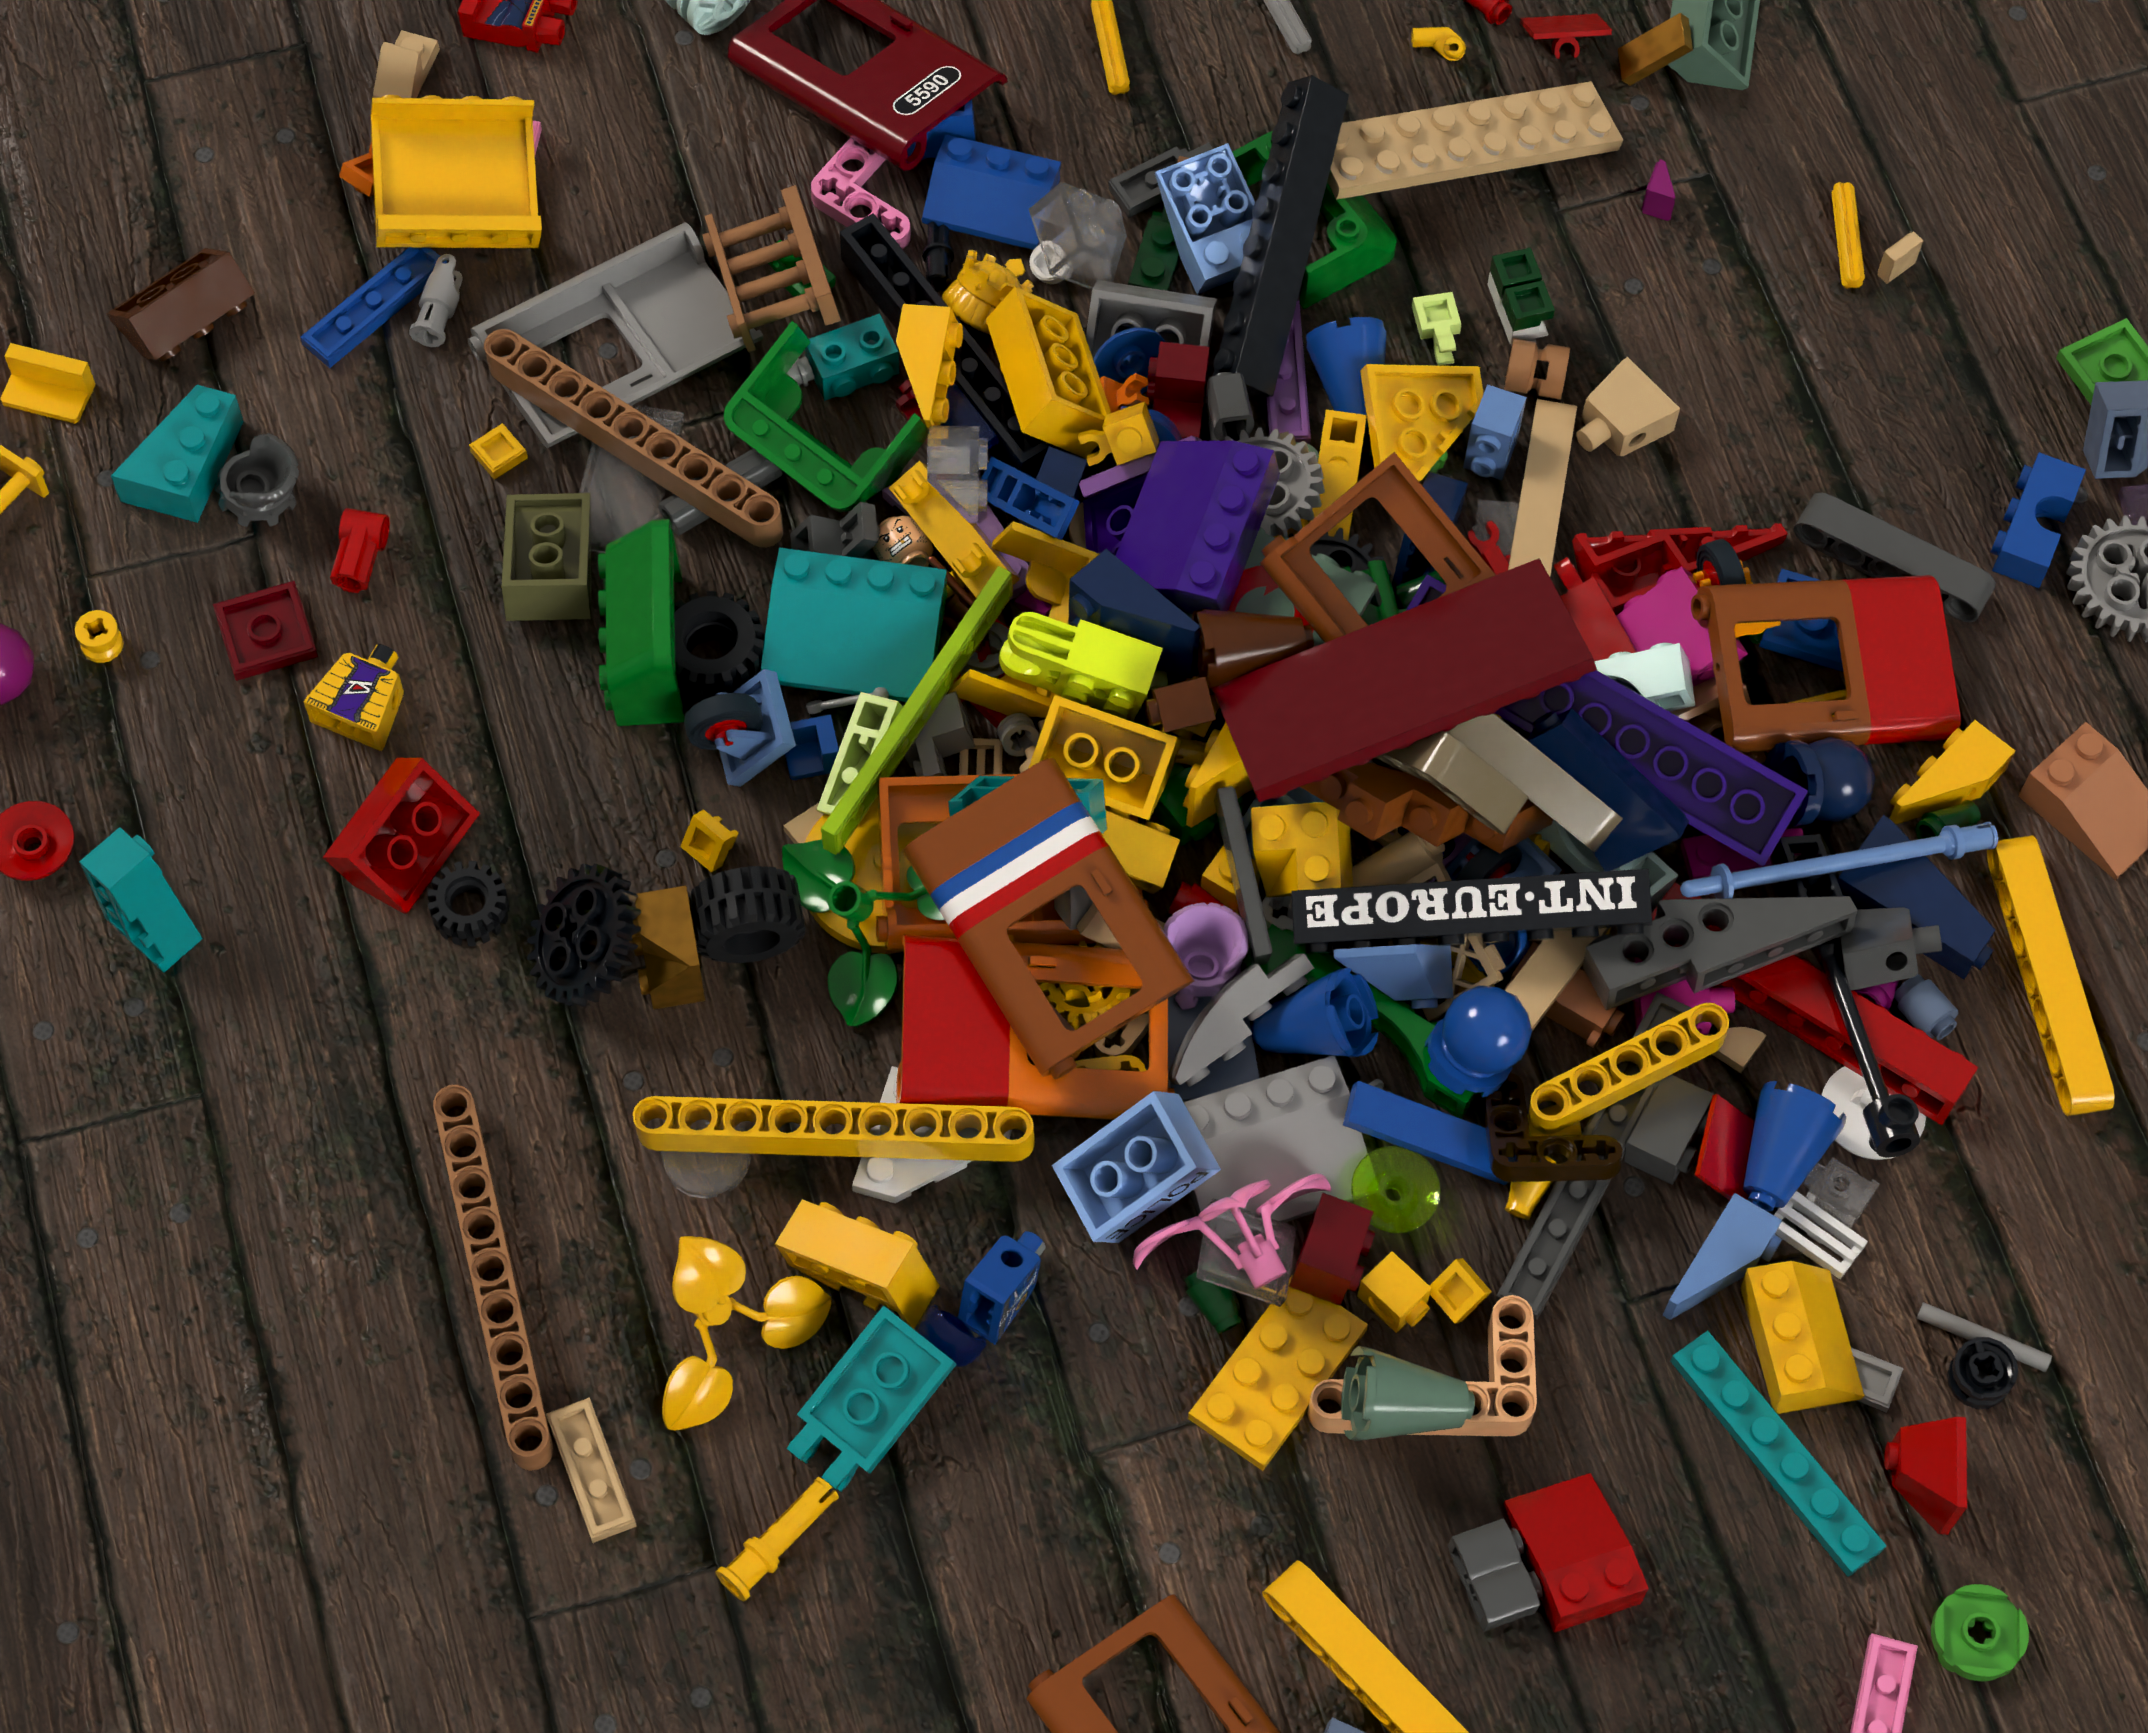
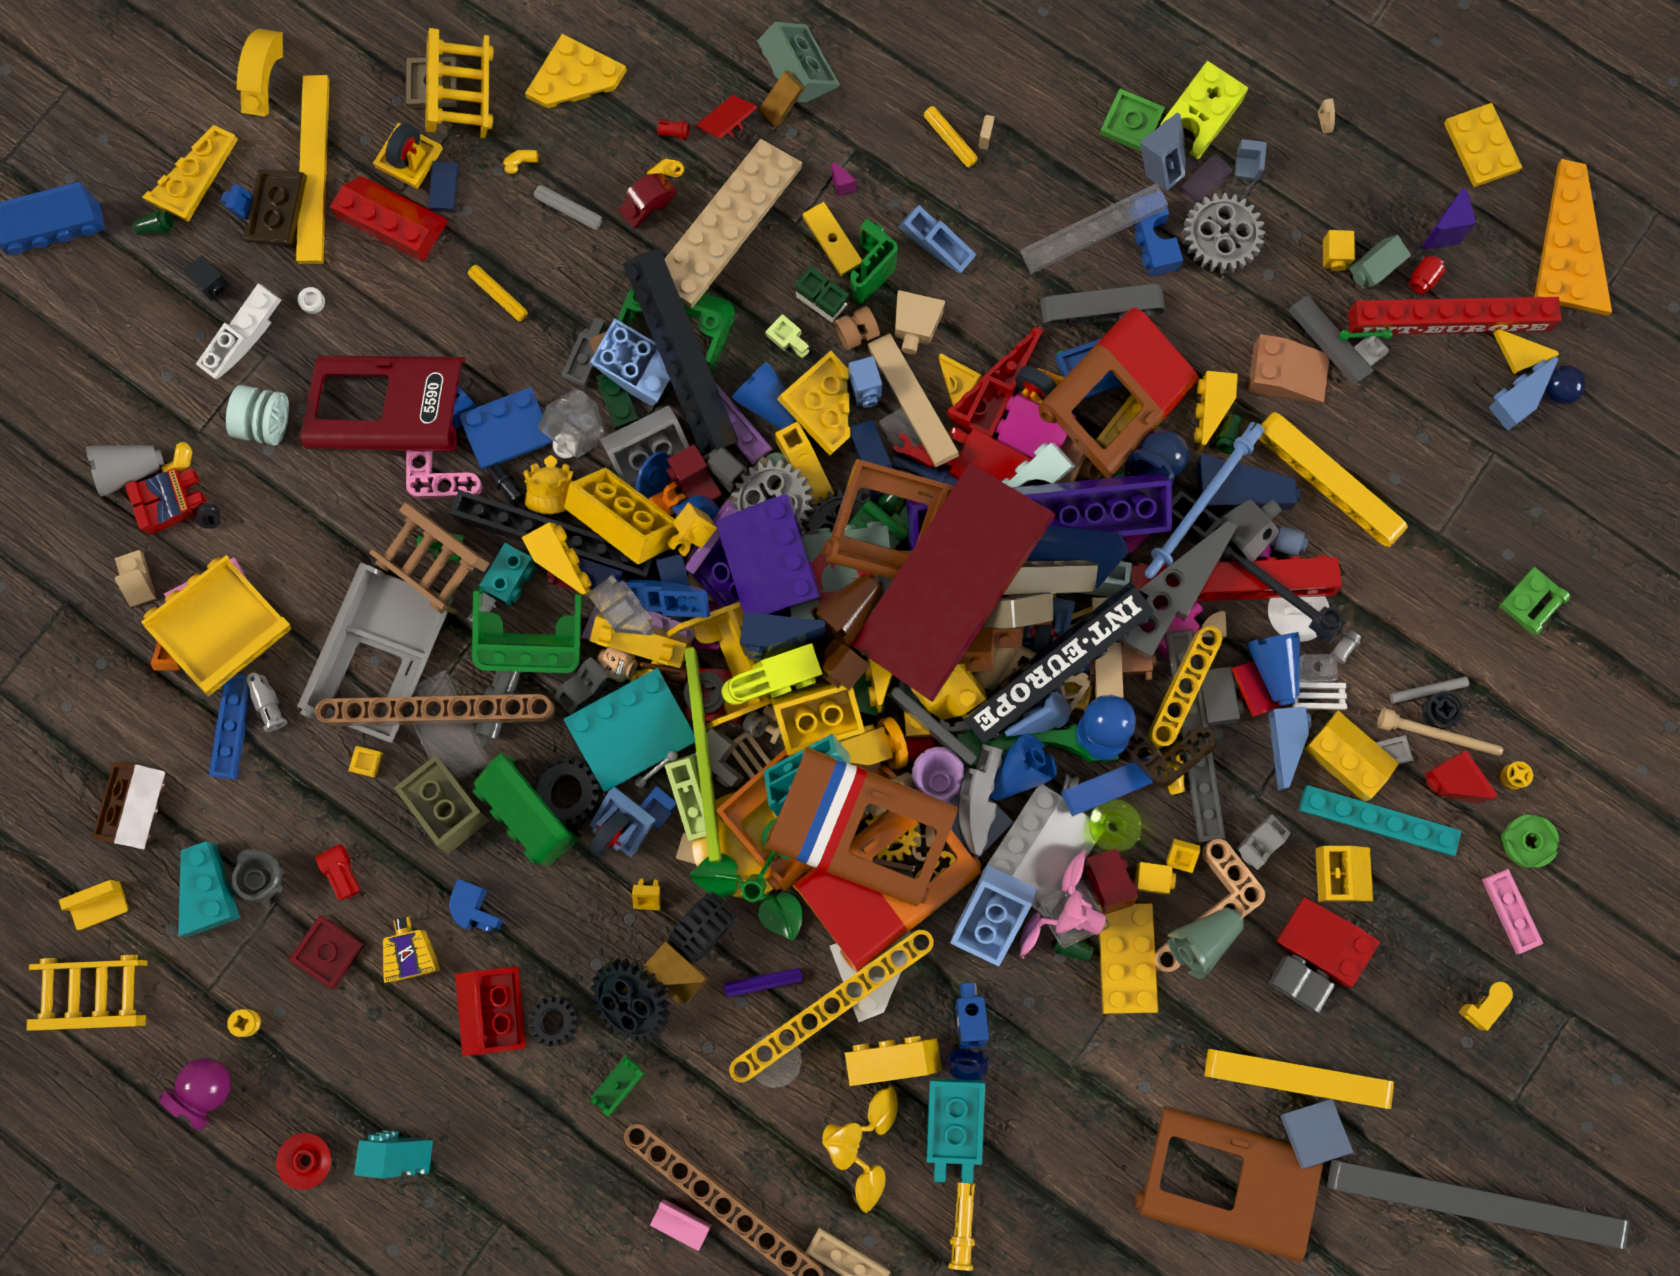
camera: 35 degrees left, 15 degrees up
(418, 1261) = (680, 1224): none -> bright pink panel
(479, 692) = (465, 907): none -> blue brick
(482, 1039) = (617, 1085): none -> green hinge
(554, 45) = (208, 522): none -> black bush
(770, 1050) = (763, 982): none -> dark purple axle
(1178, 876) = (896, 742): none -> light orange tile
(1389, 47) = (645, 195): none -> dark red brick
(1584, 1354) = (1263, 842): none -> light grey brick
(1590, 251) = (825, 228): none -> yellow tile
(1623, 310) = (876, 265): none -> green piece
(1626, 511) = (958, 378): none -> yellow tile
(1671, 1476) = (1344, 874): none -> yellow slope
(1730, 337) = (937, 239): none -> medium blue slope
(1896, 1334) = (1390, 720): none -> tan piece
(1905, 1196) = (1346, 645): none -> light grey pin
(1955, 455) = (1094, 228): none -> clear tile
(2029, 1522) = (1522, 774): none -> yellow wheel

